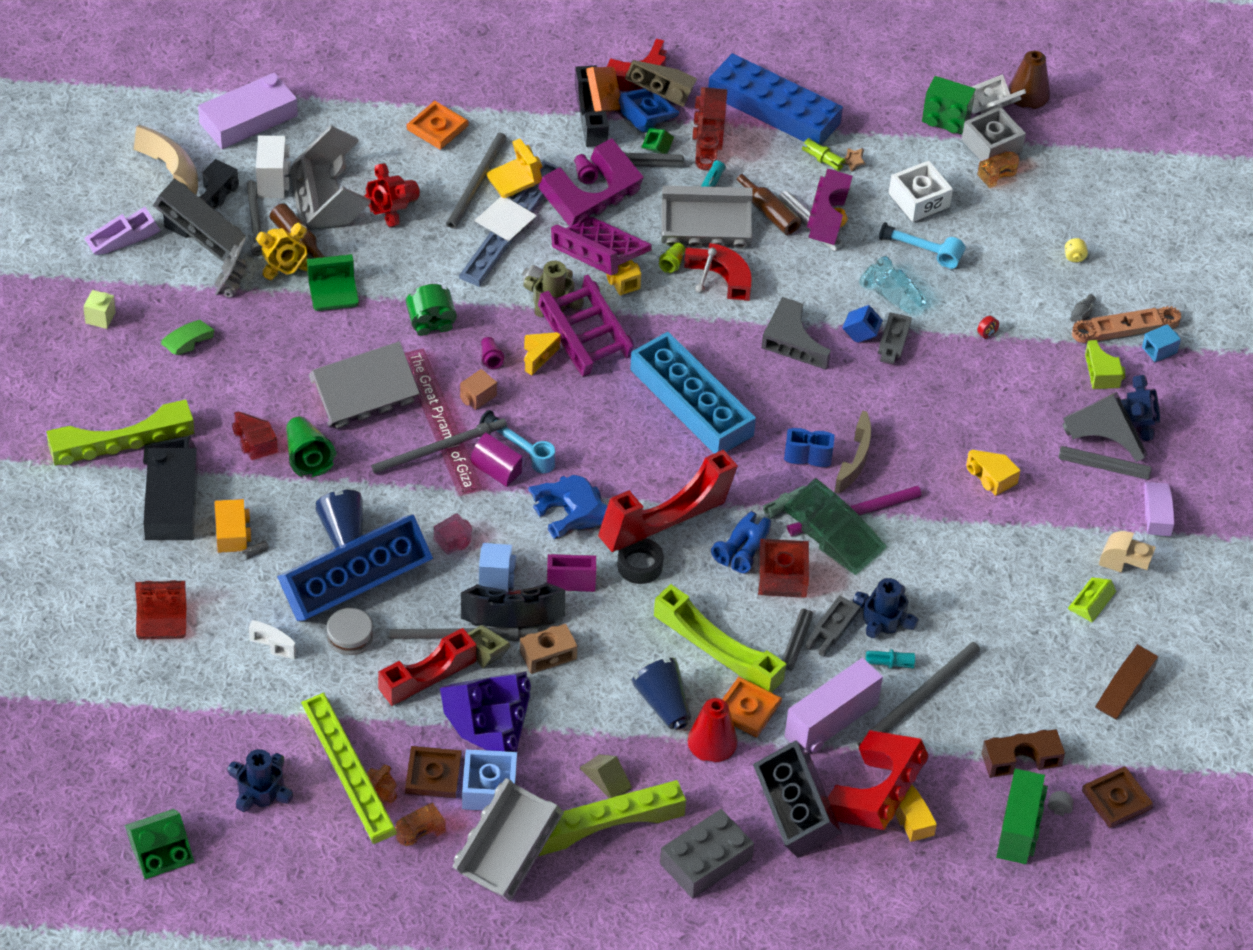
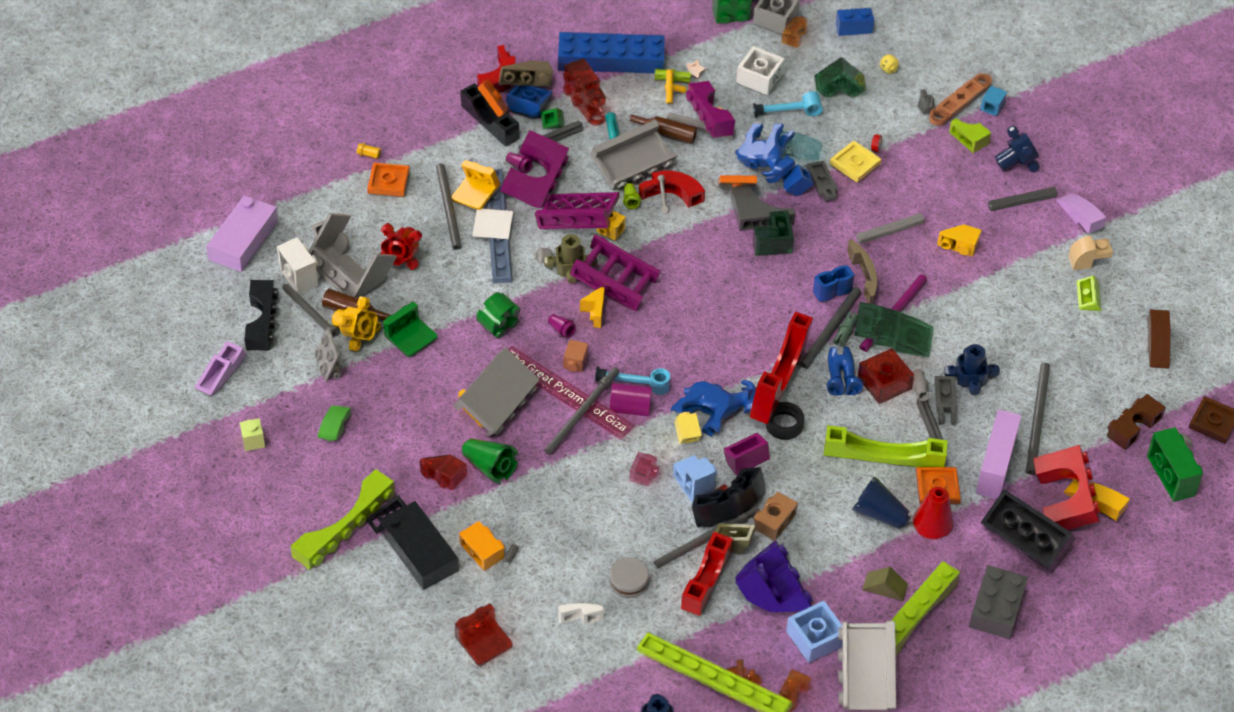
camera: 30 degrees left, 0 degrees up
(176, 158) = (220, 295): tan brick -> none
(198, 219) = (278, 330): dark grey brick -> none
(341, 516) = (563, 501): dark blue cone -> none
(354, 567) = (600, 529): blue brick -> none
(433, 772) = (769, 647): reddish brown plate -> none
(436, 83) = (369, 151): none -> yellow pin
(530, 516) = (687, 428): none -> light yellow brick
(692, 393) = (726, 284): dark azure brick -> none
(771, 492) = (830, 327): none -> dark grey piece
(788, 371) = (774, 238): none -> clear green brick
(794, 293) = (737, 180): none -> orange plate
(809, 164) = (670, 87): none -> yellow piece
(815, 596) = (920, 385): none -> light grey pin
(852, 280) = (767, 153): none -> blue animal
(891, 658) = (1001, 402): teal axle -> none
(927, 422) = (890, 228): none -> light grey axle
(948, 335) = (855, 161): none -> light yellow plate
(1002, 237) = (840, 76): none -> clear green brick
(1074, 187) = (854, 21): none -> blue brick
(1107, 419) = (1007, 167): dark grey arch -> none

